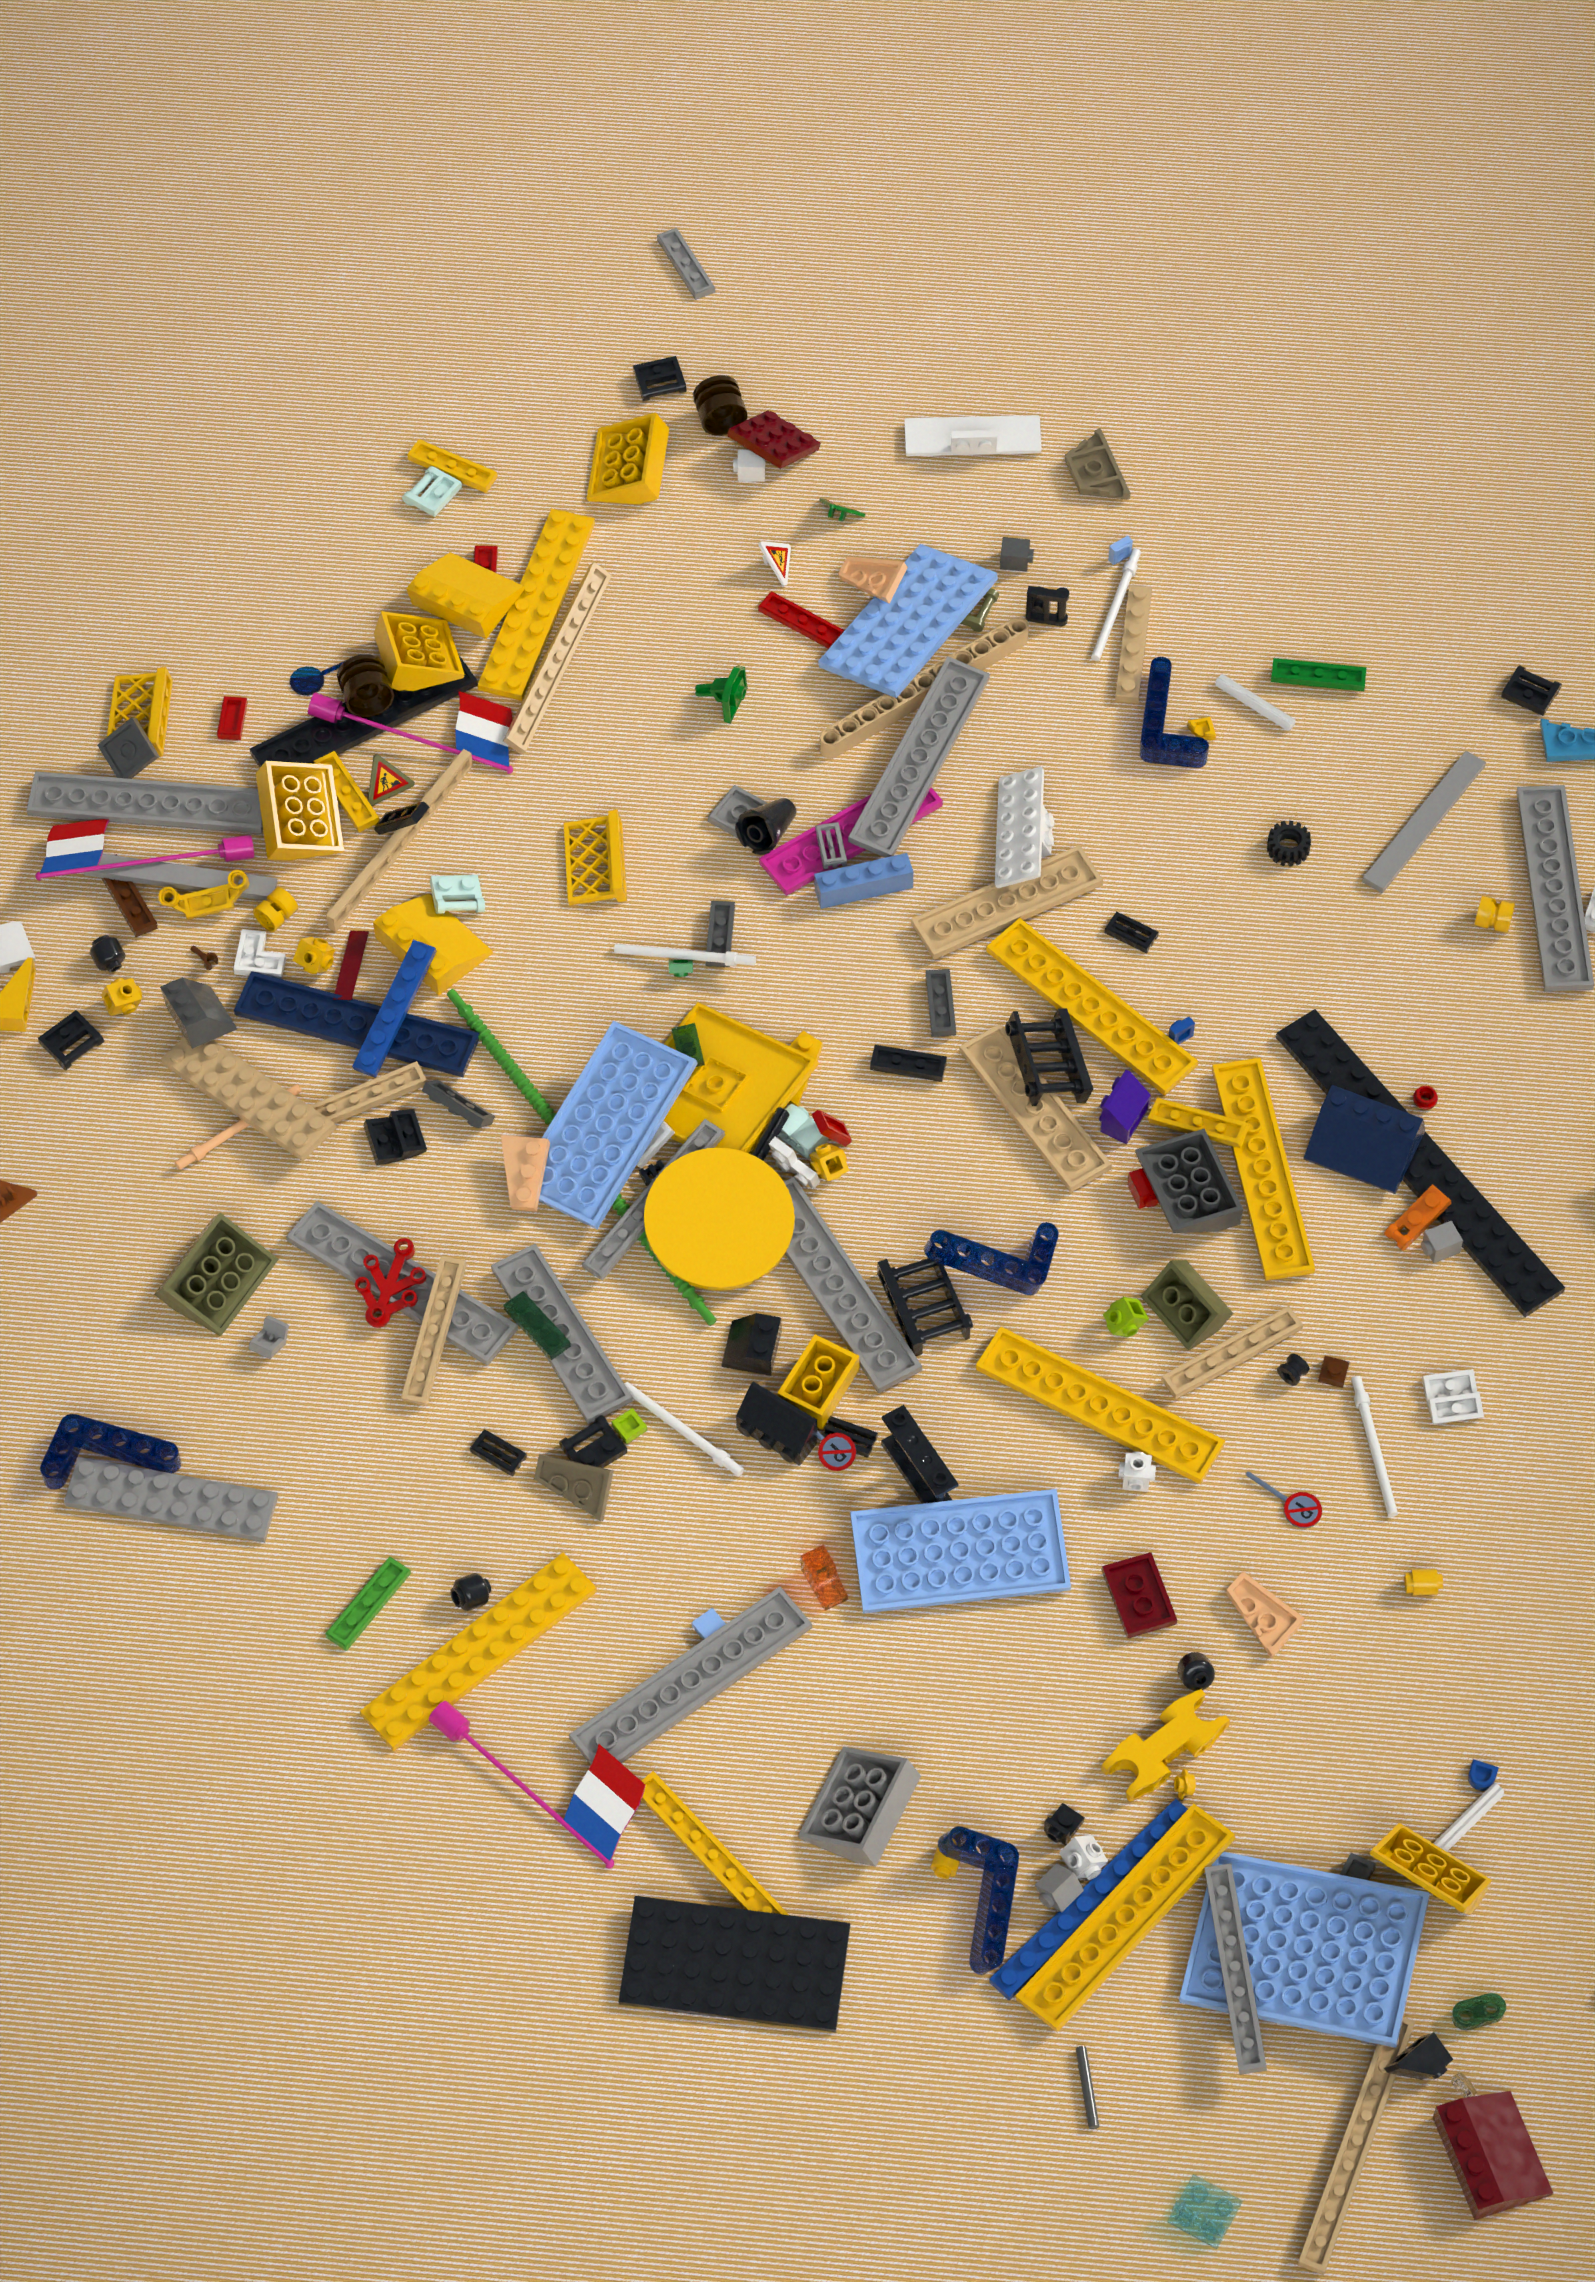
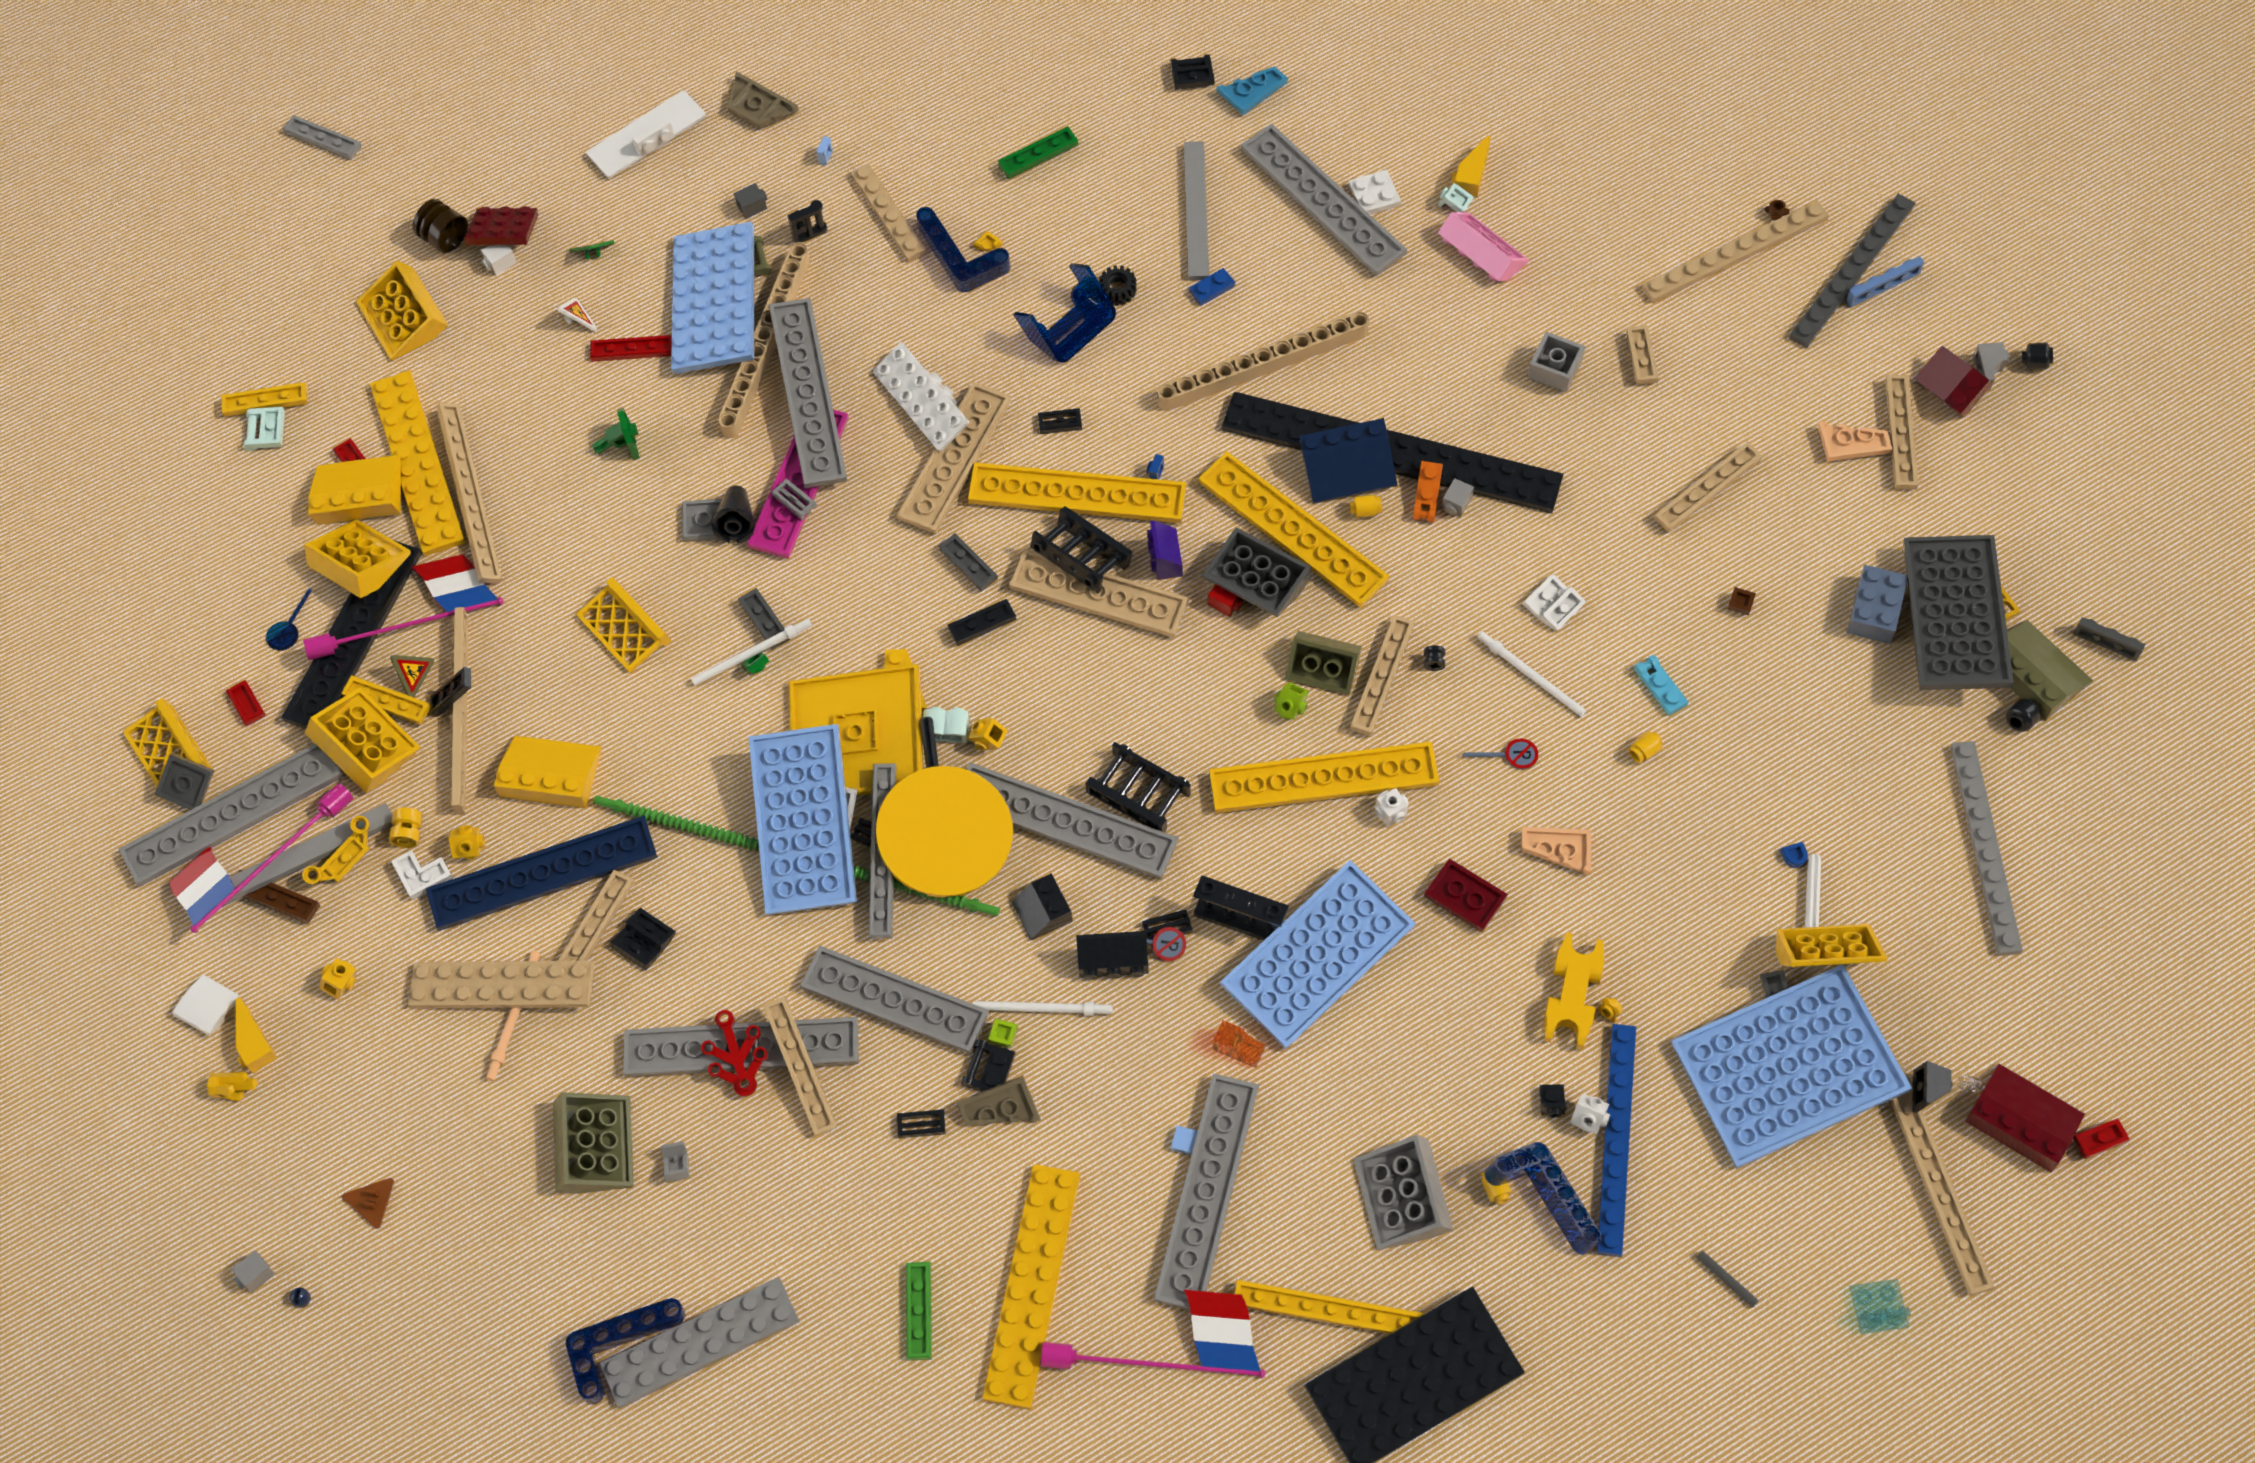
camera: 35 degrees left, 5 degrees up
(65, 1035) = (315, 1037): black plate -> none
(107, 953) = (297, 952): black head -> none
(196, 1011) = (408, 949): dark grey slope -> none
(205, 957) = (377, 902): reddish brown hand -> none
(351, 964) = (499, 830): dark red sticker -> none
(365, 685) = (339, 608): dark brown wheel -> none
(394, 1008) = (566, 841): blue plate -> none
(456, 888) = (536, 716): light aqua plate -> none
(458, 1104) = (672, 880): dark grey plate -> none
(470, 1592) = (991, 1245): black head -> none
(525, 1168) = (766, 894): light nougat wing -> none
(537, 1325) = (874, 1007): clear green plate -> none
(659, 372) = (369, 230): black plate -> none
(687, 1042) = (809, 716): clear green plate -> none
(787, 1160) = (956, 752): white plate -> none
(820, 1379) = (1115, 898): yellow brick -> none
(832, 1128) = (969, 707): red tile -> none
(863, 880) = (839, 509): medium blue brick -> none
(873, 576) = (661, 281): light nougat wing -> none
(997, 1260) = (1171, 723): clear blue beam -> none
(1058, 1888) = (1591, 1149): light grey brick -> none
(1125, 1917) = (1653, 1137): yellow plate -> none
(1129, 571) = (842, 162): white bar -> none
(1190, 1119) = (1223, 525): yellow plate -> none
(1196, 1671) = (1552, 922): black head -> none
(1217, 858) = (1079, 326): none -> clear blue windscreen
(1235, 1969) = (1761, 1116): light grey plate -> none
(1255, 702) = (1010, 200): white axle -> none
(1333, 1371) = (1460, 640): reddish brown plate -> none
(1348, 1192) = (1365, 506): none -> yellow brick
(1378, 901) = (1212, 286): none -> blue plate
(1379, 996) = (1255, 367): none -> tan beam
(1427, 1092) = (1360, 399): red plate -> none
(1477, 2011) = (1933, 1024): clear green plate -> none
(1489, 1540) = (1661, 685): none -> medium azure plate
(1494, 914) = (1302, 243): yellow wheel -> none
(1547, 2223) = (2101, 1138): none -> red plate

